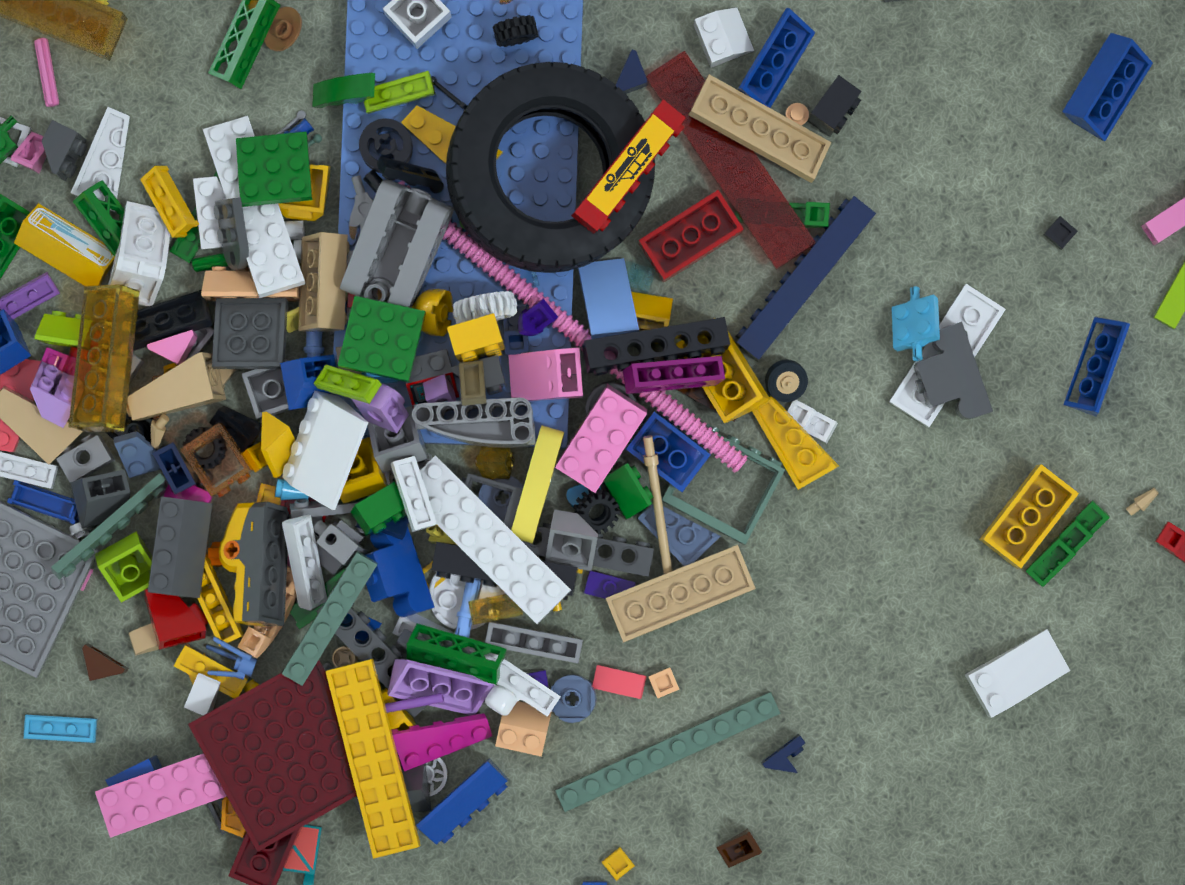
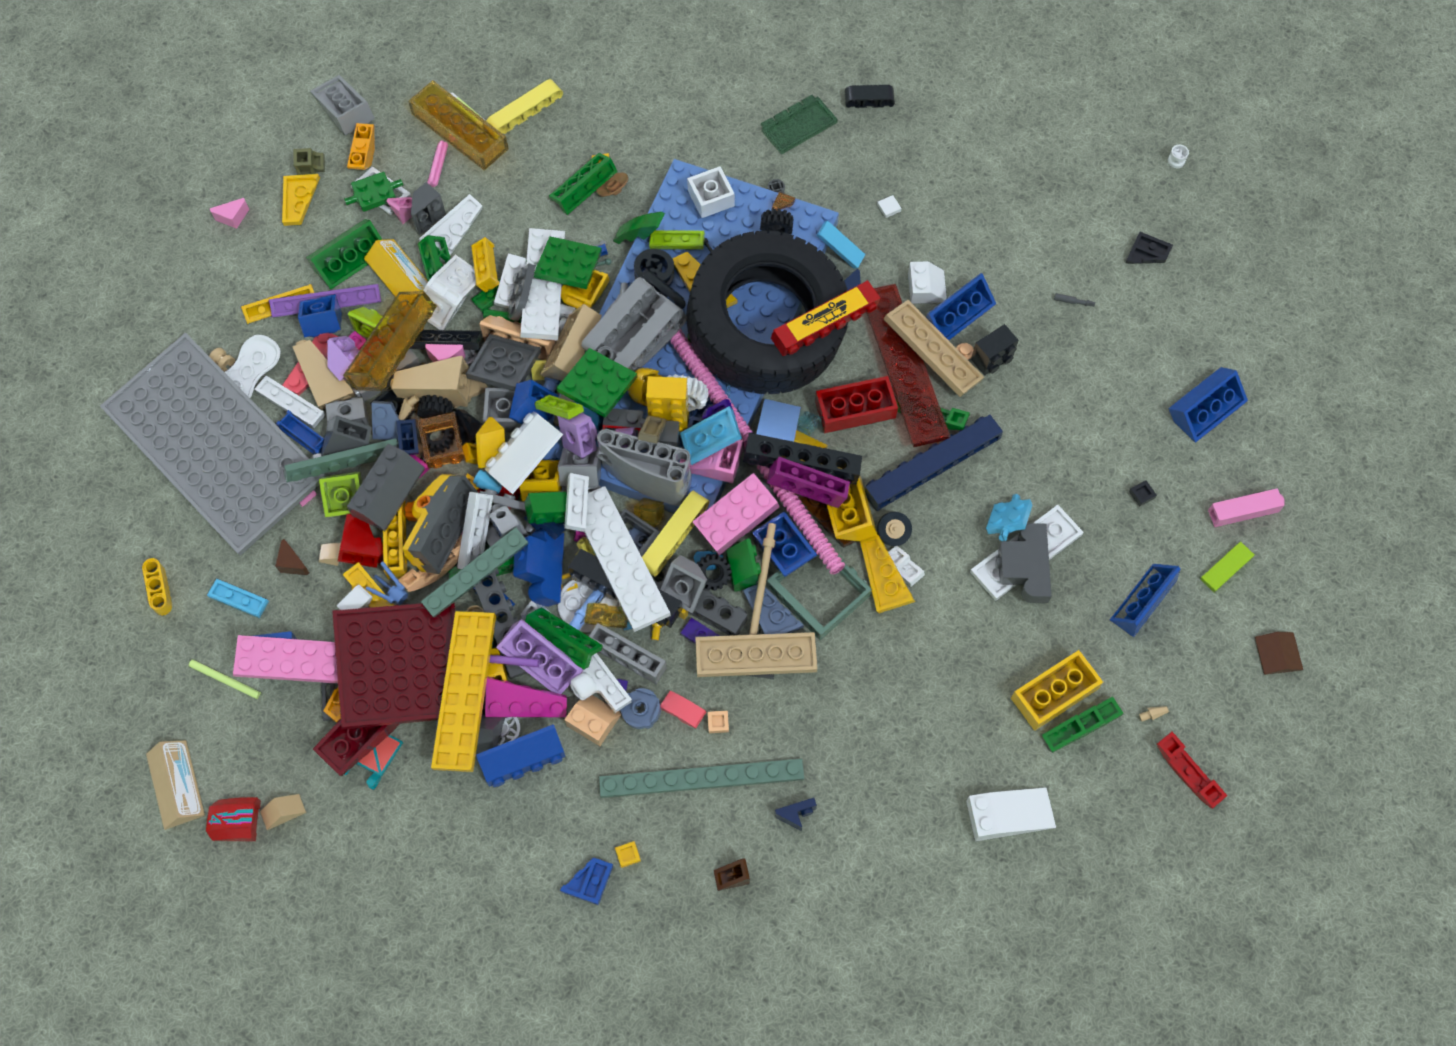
camera: 20 degrees right, 20 degrees down
(81, 826) = (224, 679): none -> yellowish green bar
(190, 418) = (433, 406): none -> black tyre
(539, 355) = (711, 435): none -> medium azure plate
(600, 22) = (840, 244): none -> medium azure tile

